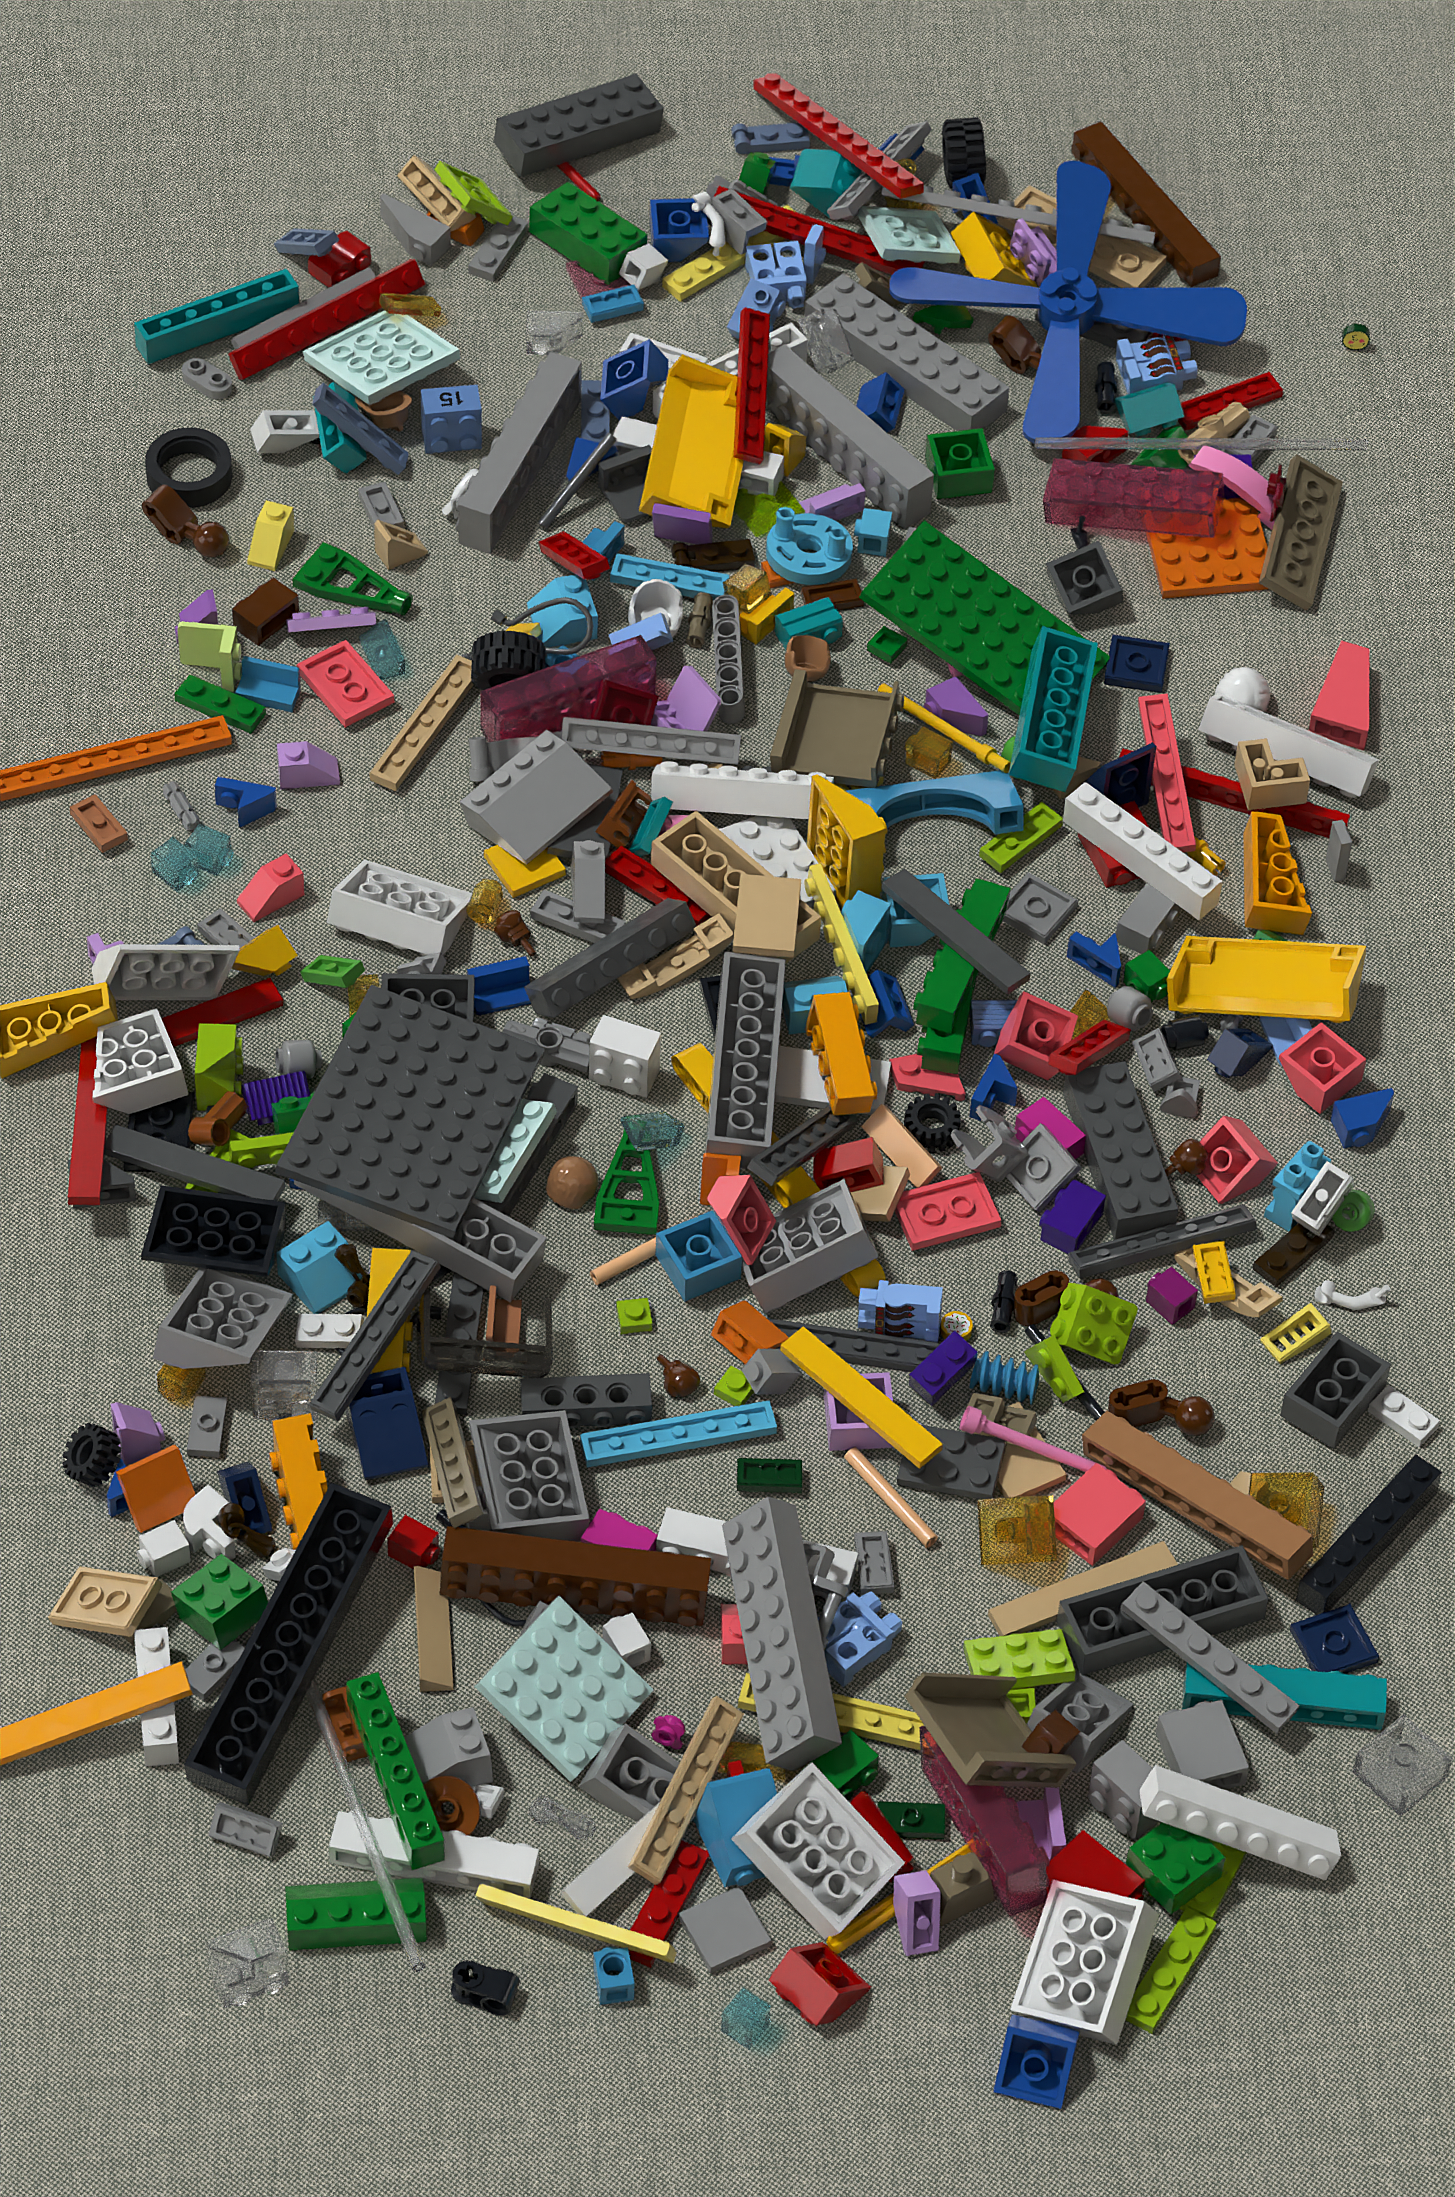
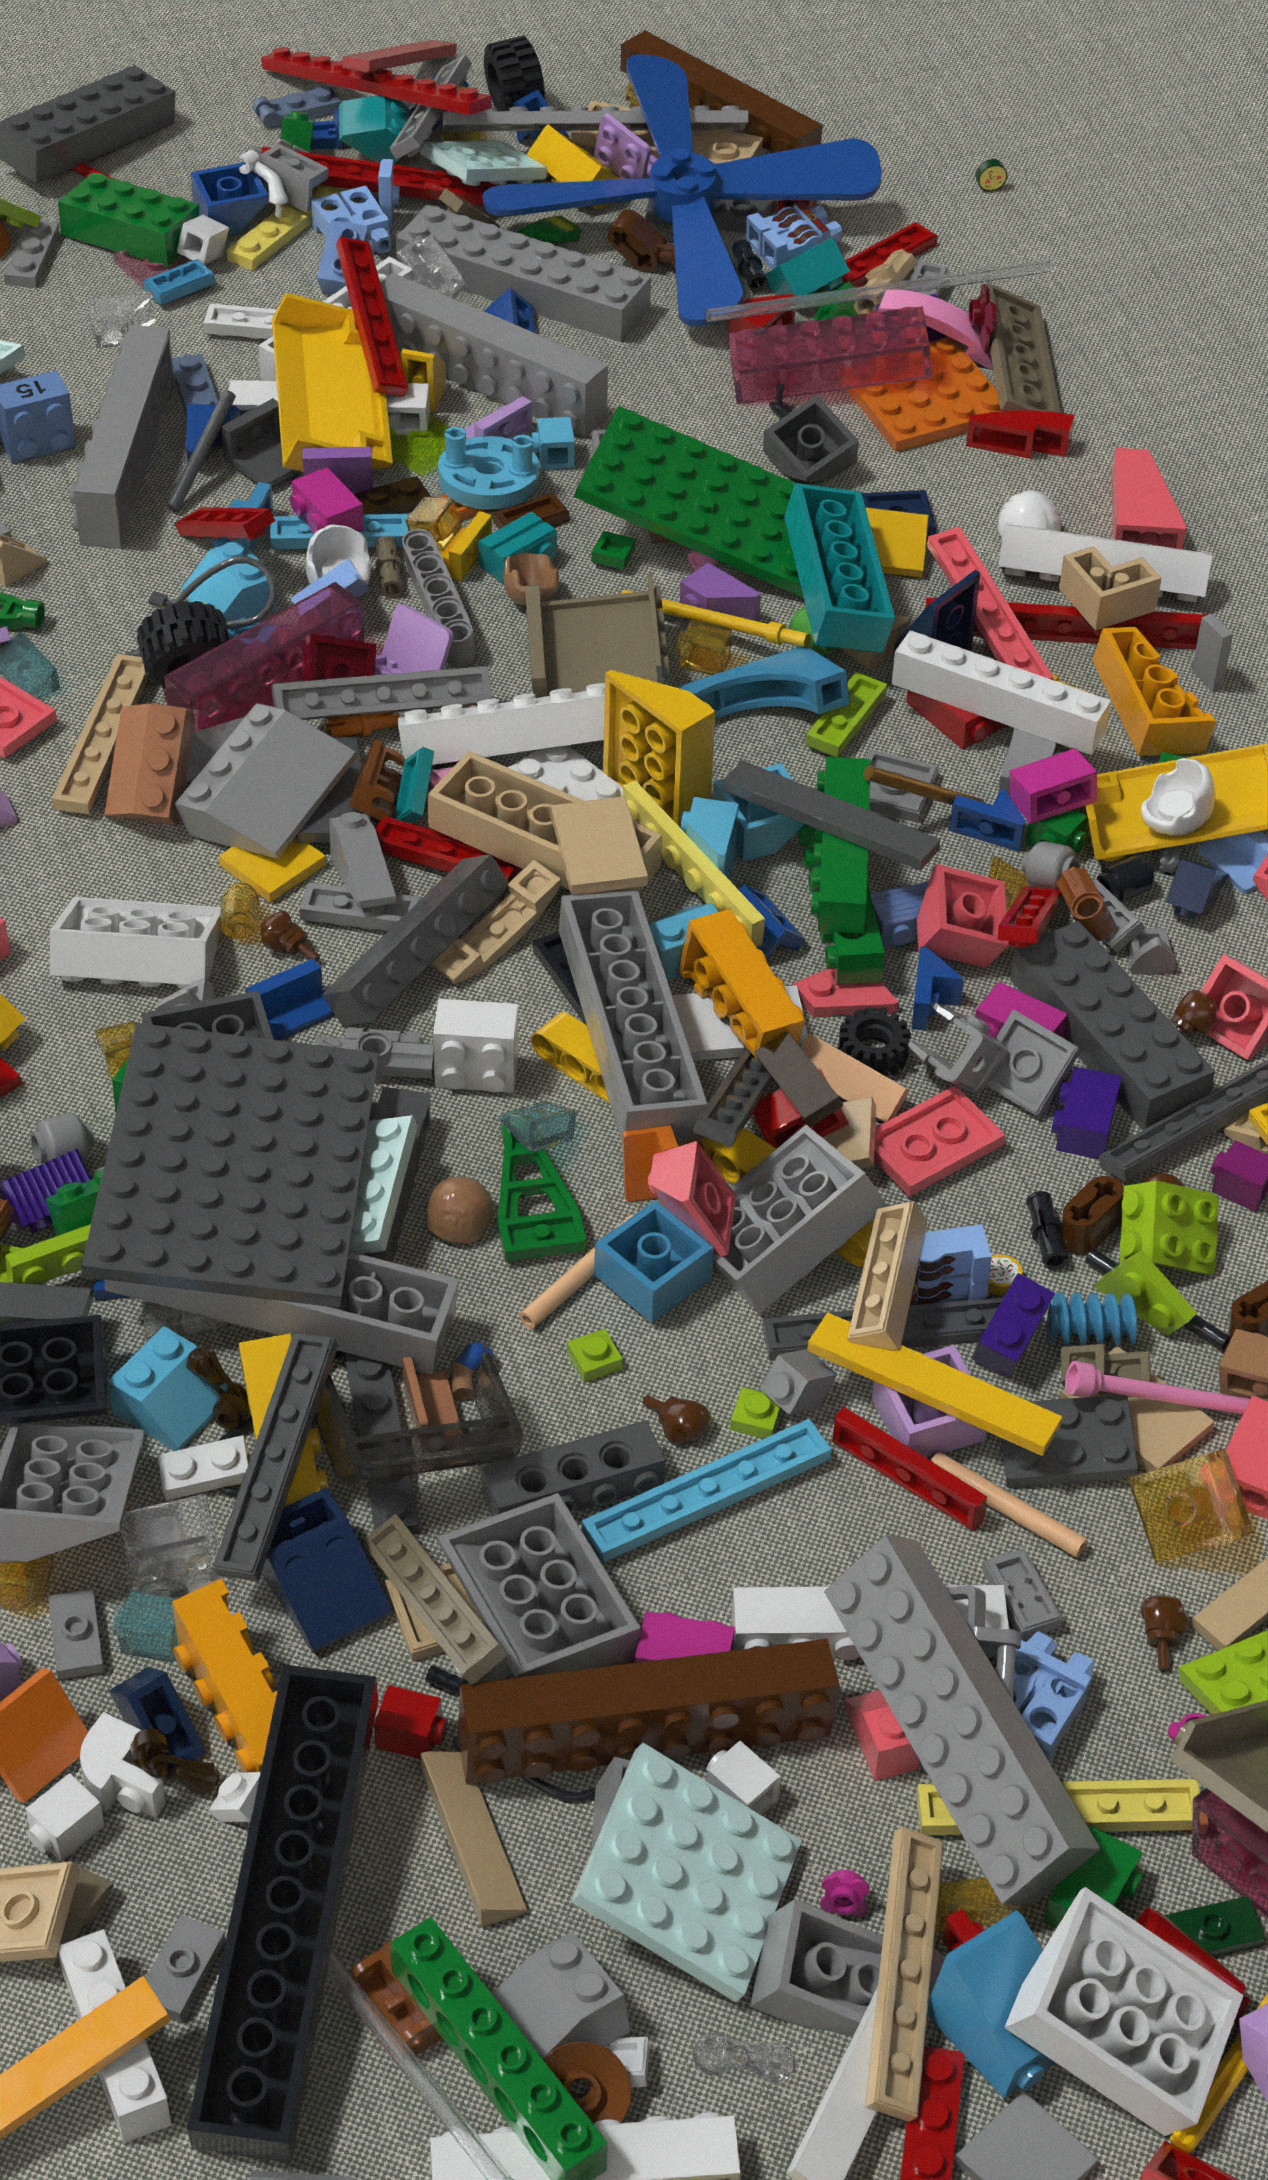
camera: 15 degrees left, 5 degrees down
(220, 1601) = (168, 1872): green brick -> none
(254, 1433) = (146, 1627): none -> clear light blue brick
(333, 971) = (76, 1028): bright green plate -> none
(451, 762) = (150, 763): none -> nougat slope
(460, 489) = (63, 503): white piece -> none
(535, 1302) = (464, 1367): none -> arm
(629, 377) = (227, 341): blue slope -> none
(662, 554) = (326, 501): none -> dark pink brick
(745, 1330) = (747, 1342): orange panel -> none
(769, 1475) = (844, 1514): dark green plate -> none
(827, 1454) = (909, 1469): none -> red tile
(852, 1141) = (798, 1079): none -> dark brown tile
(857, 1310) = (888, 1277): none -> tan slope
(870, 109) = (399, 56): none -> red tile
(960, 463) = (633, 357): green brick -> none
(966, 1607) = (1163, 1623): none -> reddish brown piece
(1044, 918) = (913, 785): none -> pearl gold bar
(1118, 685) = (899, 541): none -> yellow tile
(1140, 1047) = (1086, 902): none -> dark orange piece
(1150, 942) = (1053, 785): none -> dark pink brick
(1246, 979) = (1180, 799): none -> white piece
(1273, 605) = (1021, 432): none -> red slope

